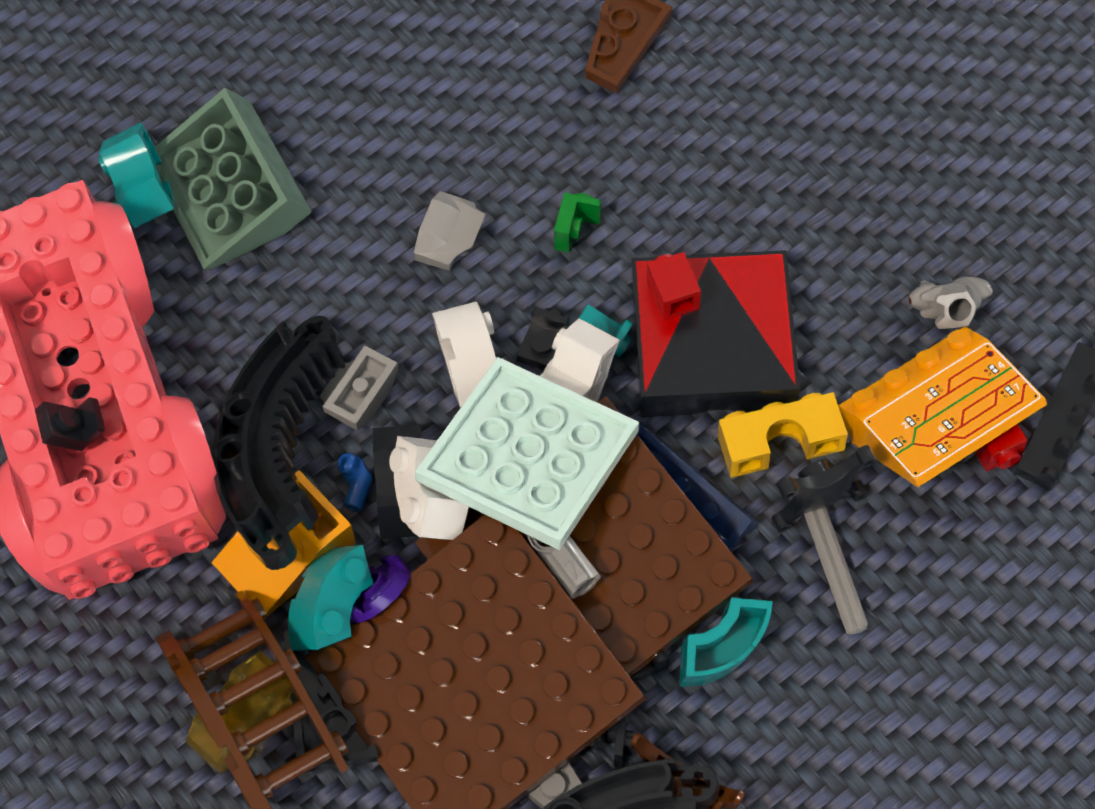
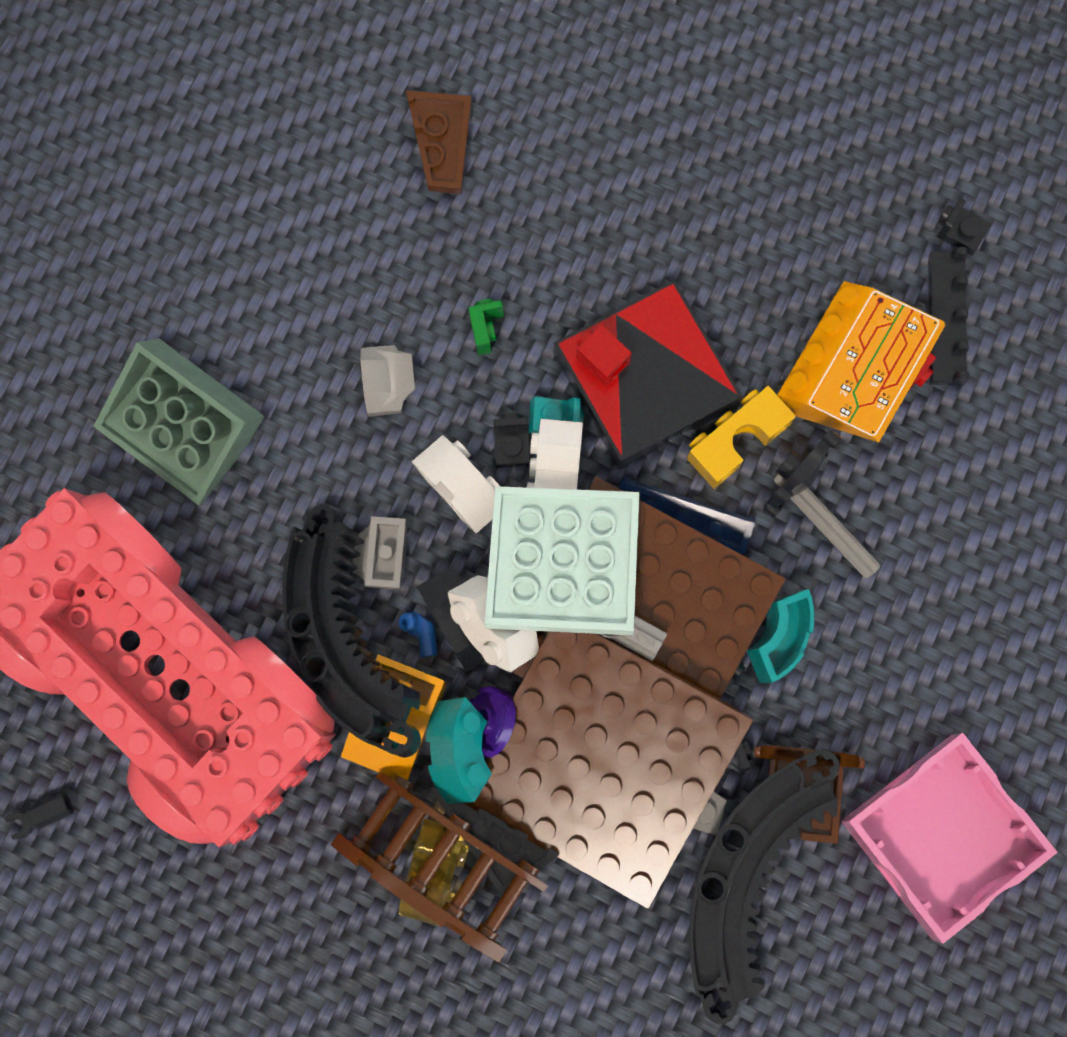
camera: 25 degrees left, 15 degrees up
(68, 425) = (169, 707): black bracket -> none
(132, 165) = (87, 440): teal brick -> none
(950, 303) = (825, 262): light grey animal -> none

